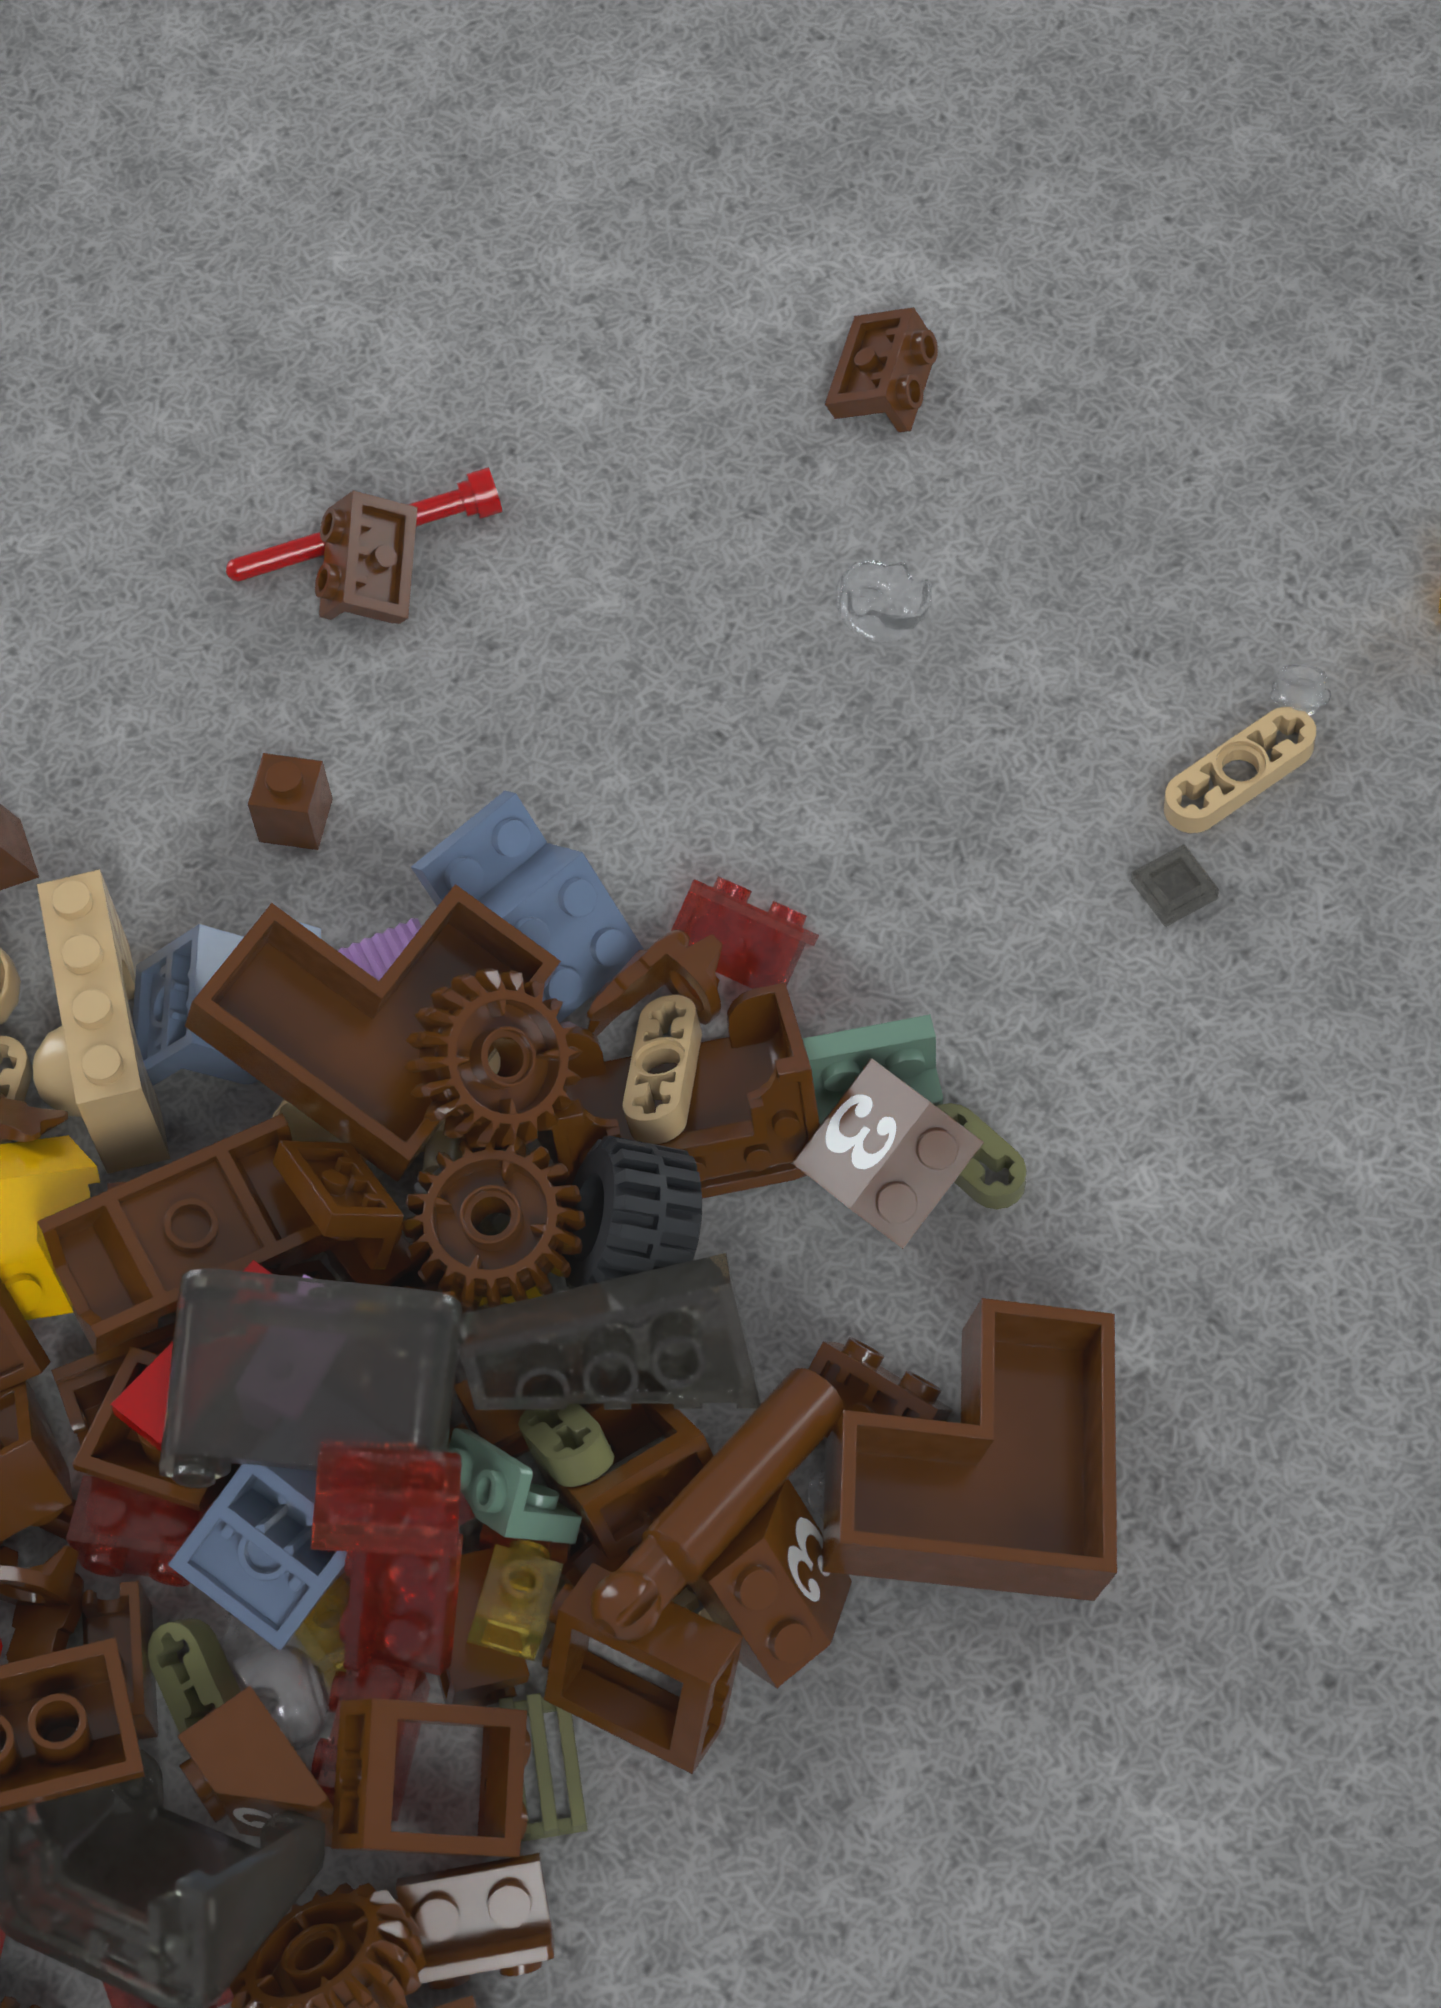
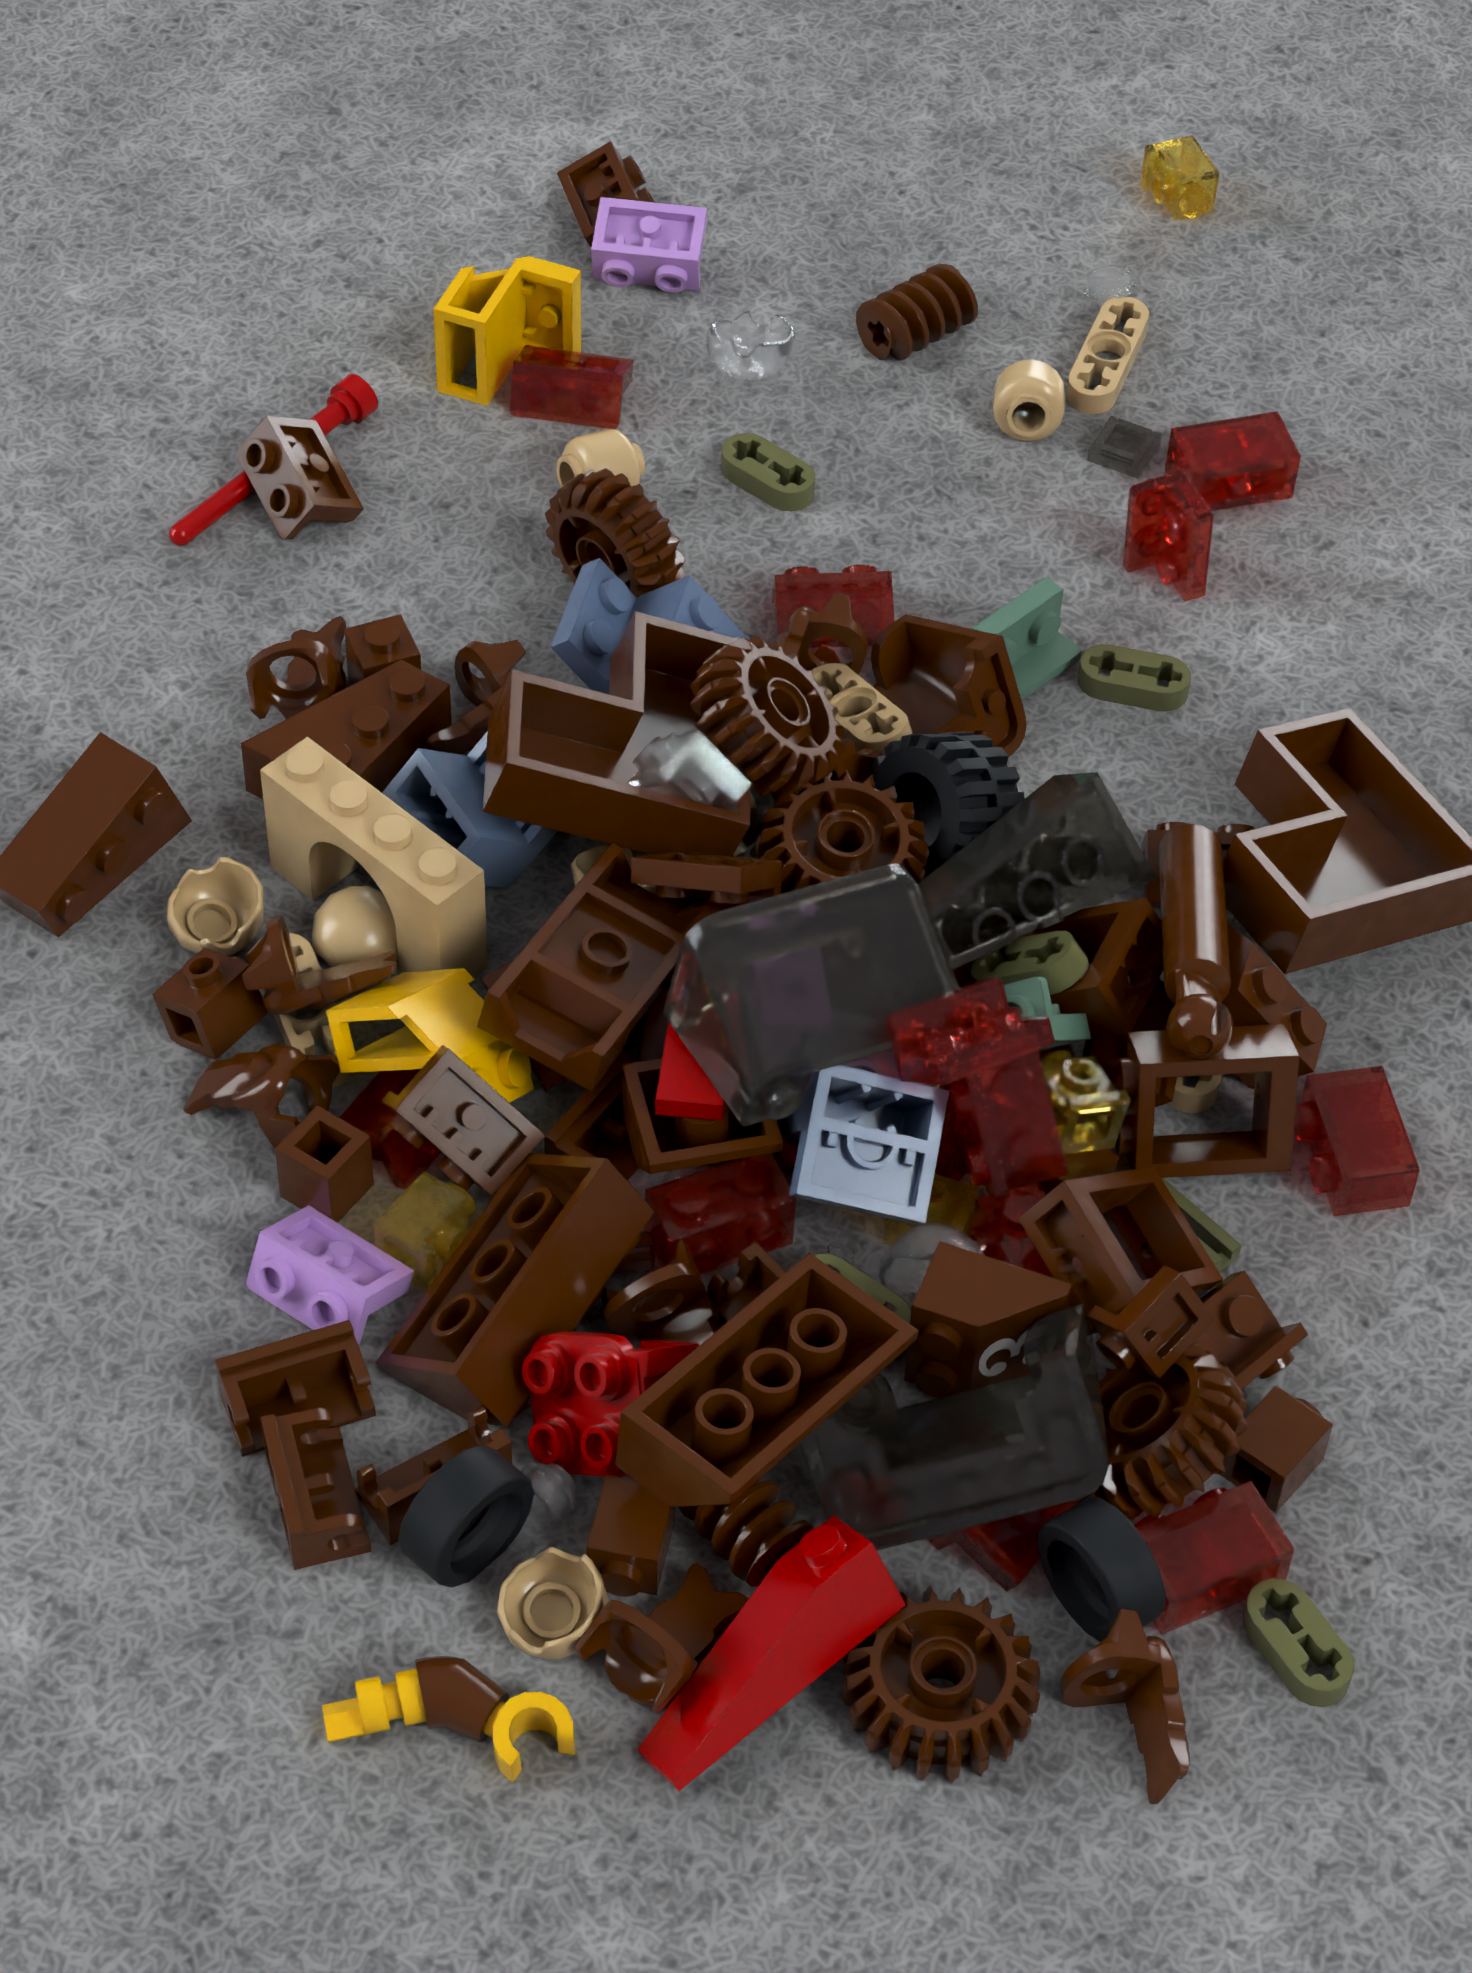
camera: 40 degrees left, 10 degrees down
(204, 873) = (365, 726): none -> reddish brown wedge
(225, 784) = (311, 675): none -> reddish brown hair
(365, 1883) = (1153, 1325): none -> reddish brown bracket
(371, 871) = (495, 664): none -> reddish brown hair
(382, 1080) = (695, 766): none -> clear bracket
(566, 774) = (615, 522): none -> reddish brown gear
(638, 678) = (599, 451): none -> tan head
(645, 471) = (498, 317): none -> yellow piece
(689, 565) = (569, 386): none -> clear red bracket
(770, 1779) = (1356, 1141): none -> clear red brick
(790, 754) = (767, 472): none -> olive beam
(868, 440) = (648, 244): none -> lavender bracket
(887, 1153) = (1092, 684): slope -> none
(1075, 636) = (916, 312): none -> reddish brown piece
(1104, 1008) = (1169, 529): none -> clear red bracket
(1107, 790) = (1029, 400): none -> tan head
(1248, 962) = (1226, 455): none -> clear red brick

